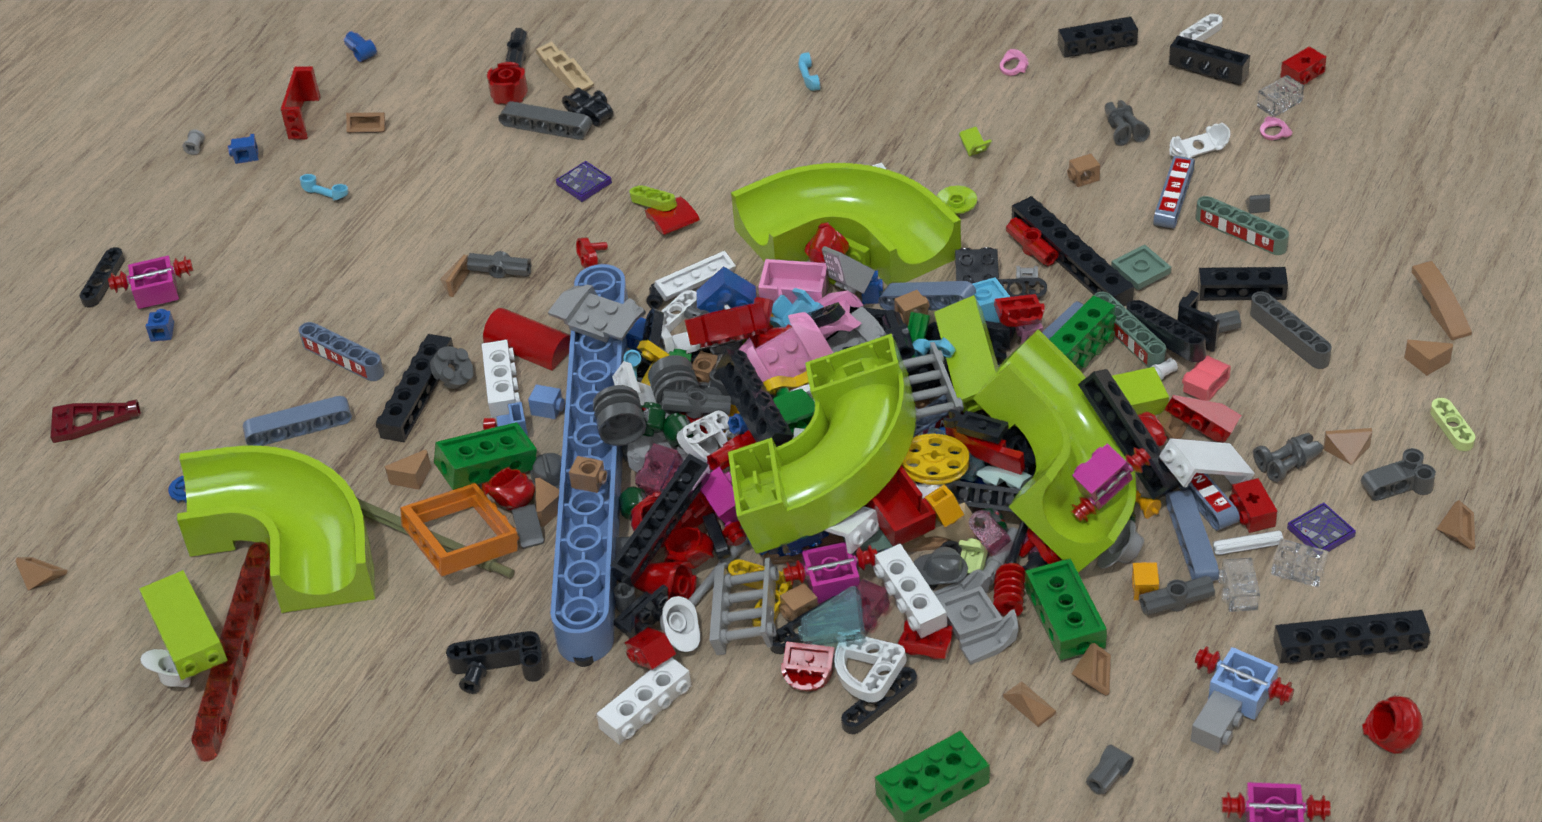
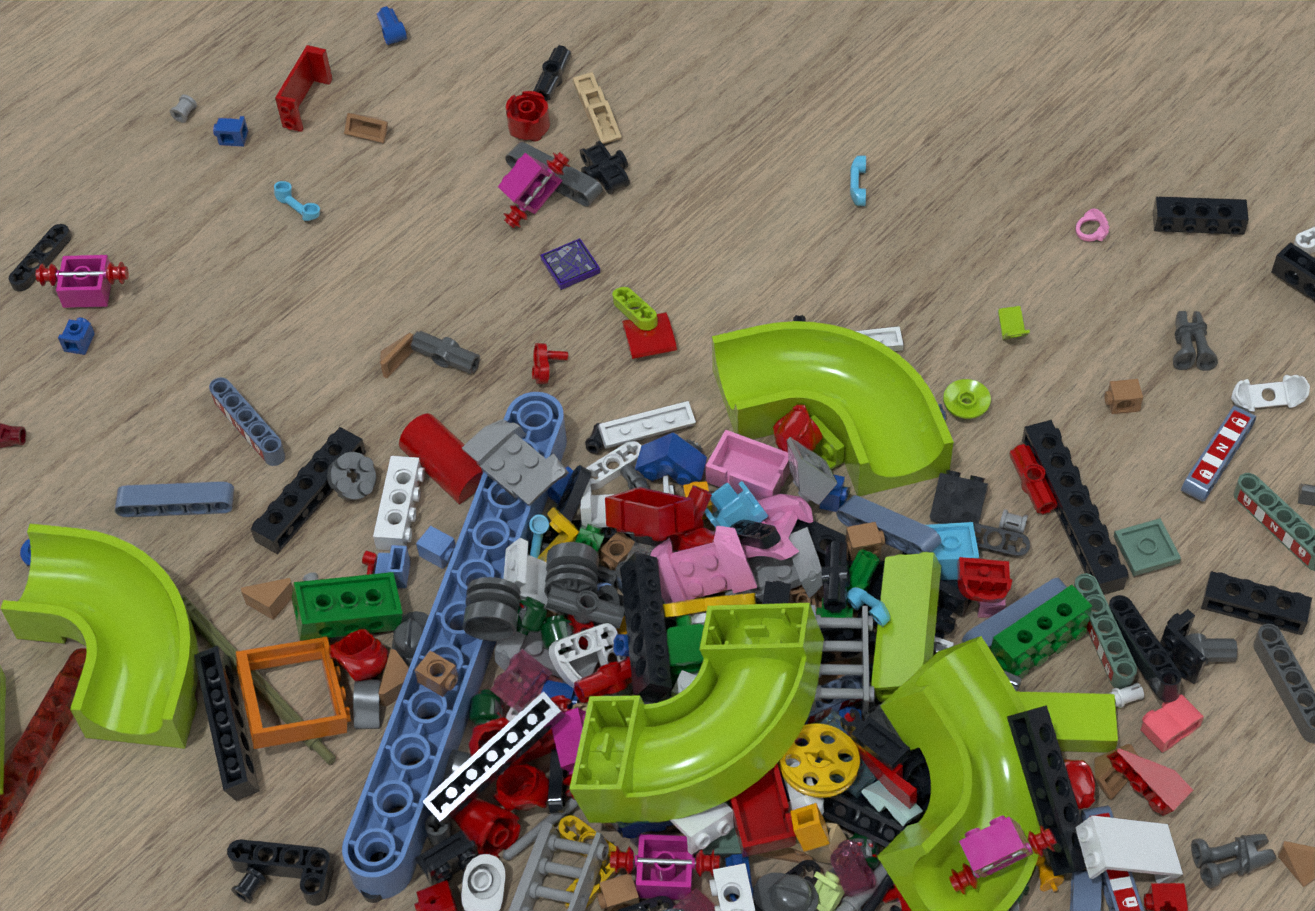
camera: 15 degrees right, 10 degrees up
(409, 565) = (226, 723): none -> black brick
(531, 126) = (531, 185): none -> dark pink brick

